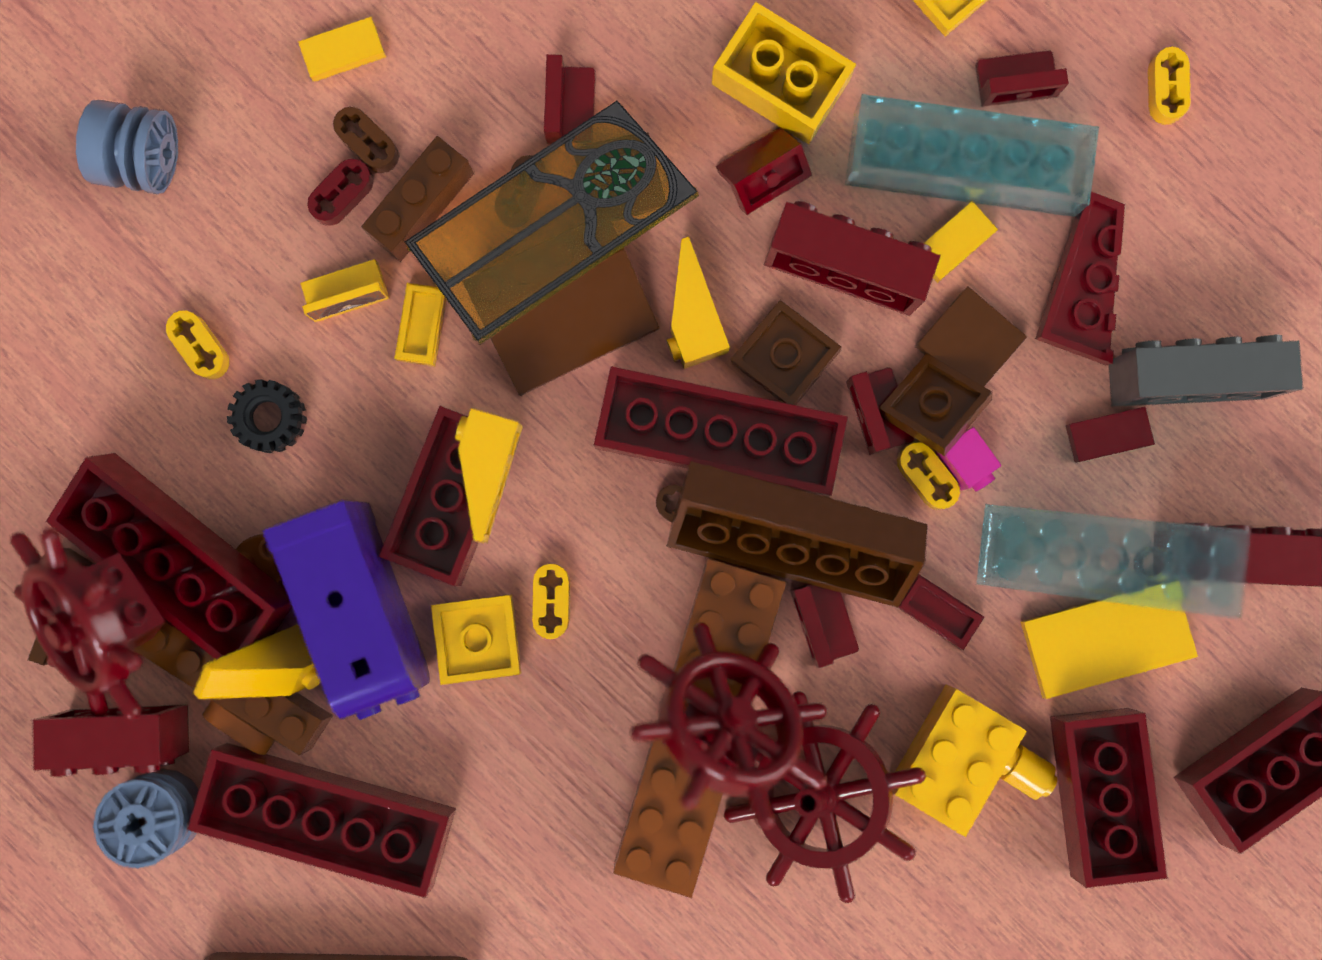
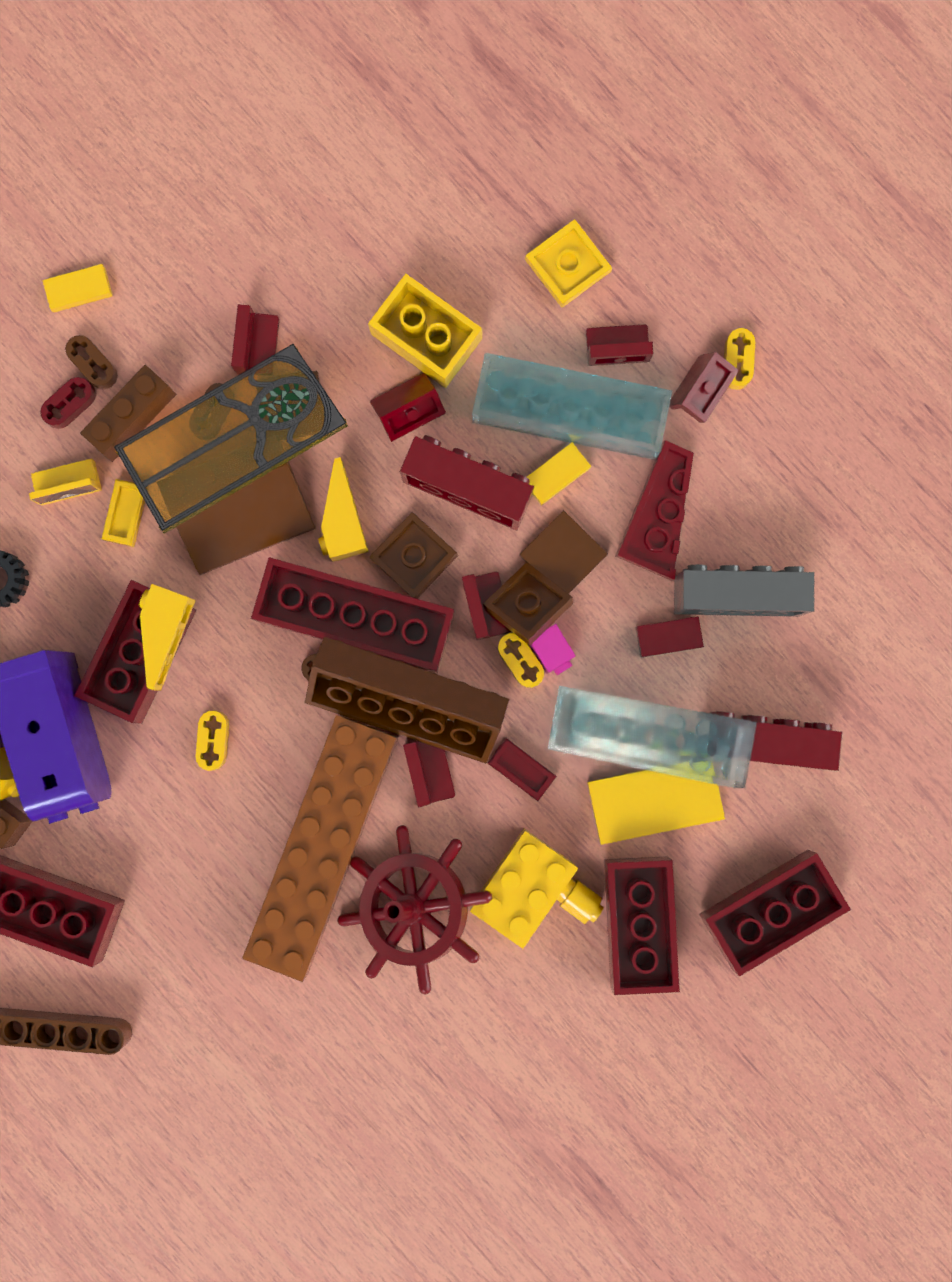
camera: 10 degrees right, 0 degrees up
(476, 639) = (150, 767): yellow plate -> none
(719, 736) = (328, 852): dark red piece -> none
(1133, 119) = (704, 386): none -> panel

